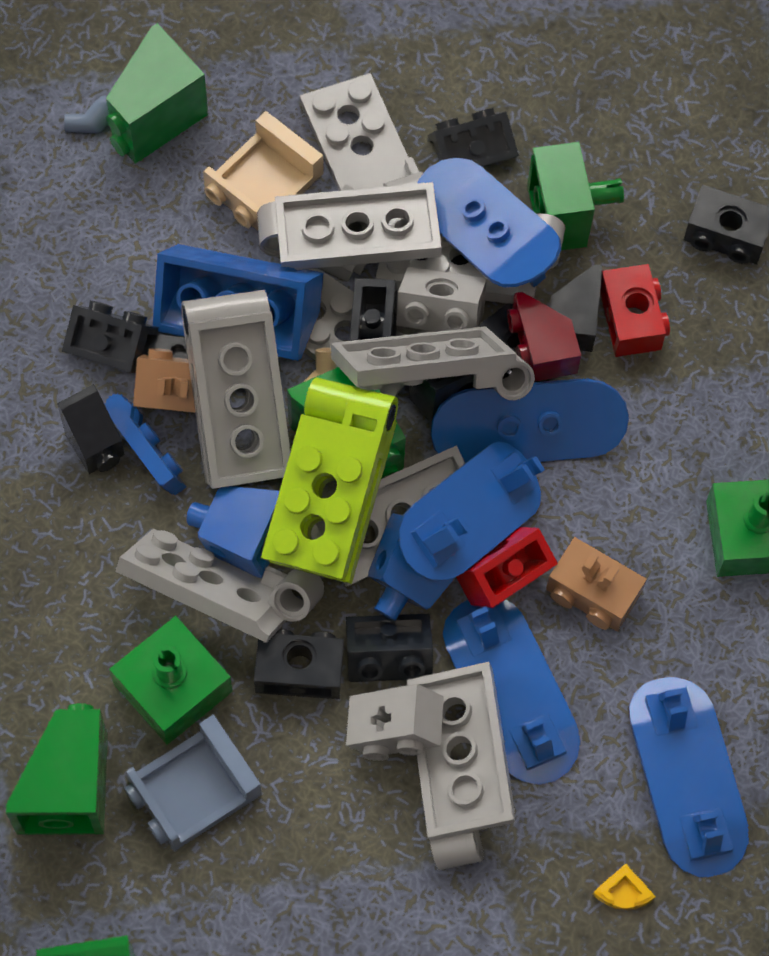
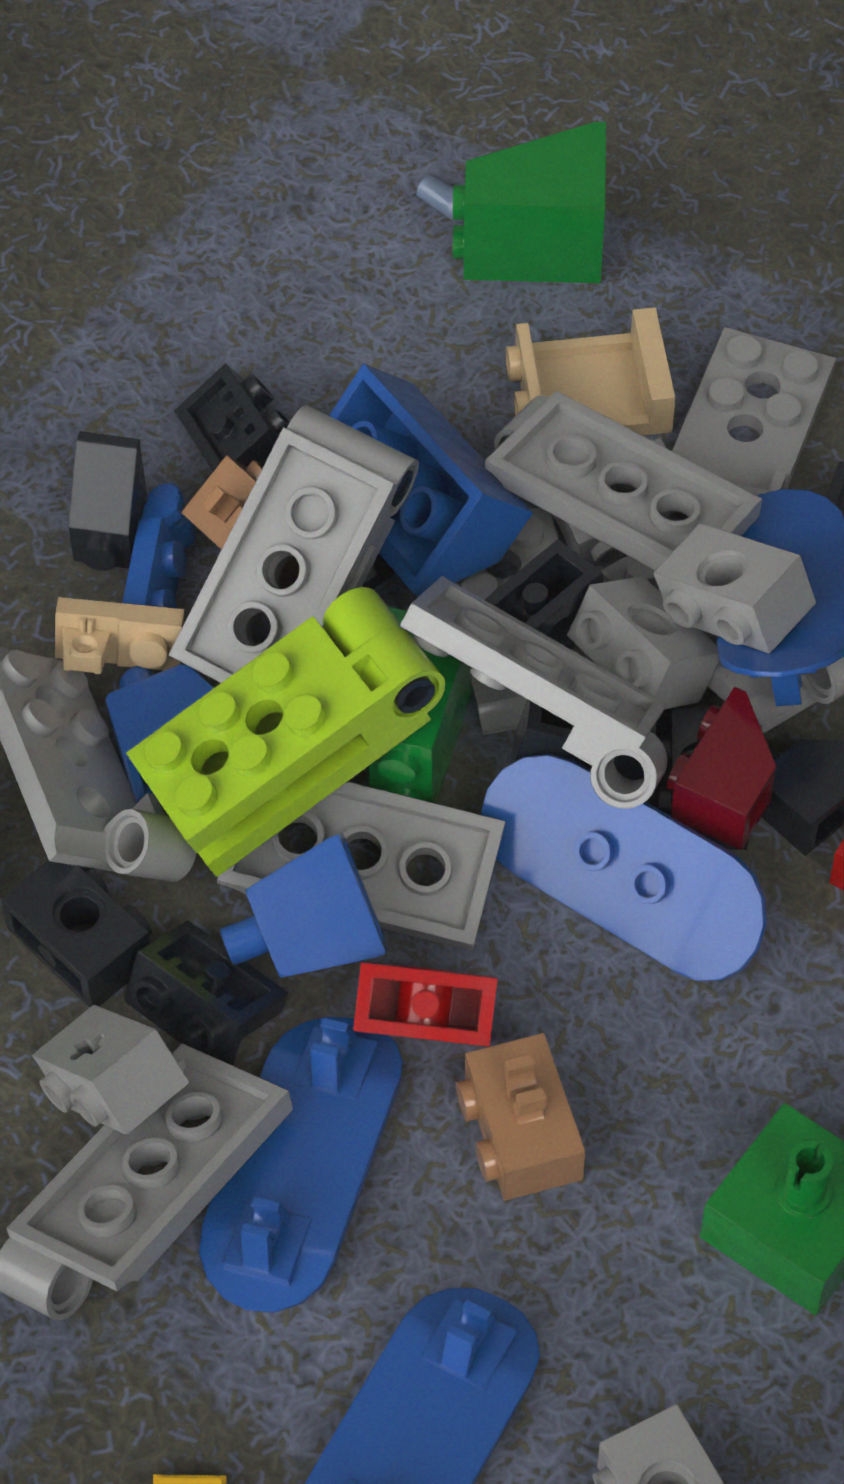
camera: 45 degrees right, 10 degrees down
(158, 505) = (115, 633): none -> tan hinge
(458, 235) = (734, 588): none -> light grey brick
(470, 512) = (439, 901): blue piece -> none

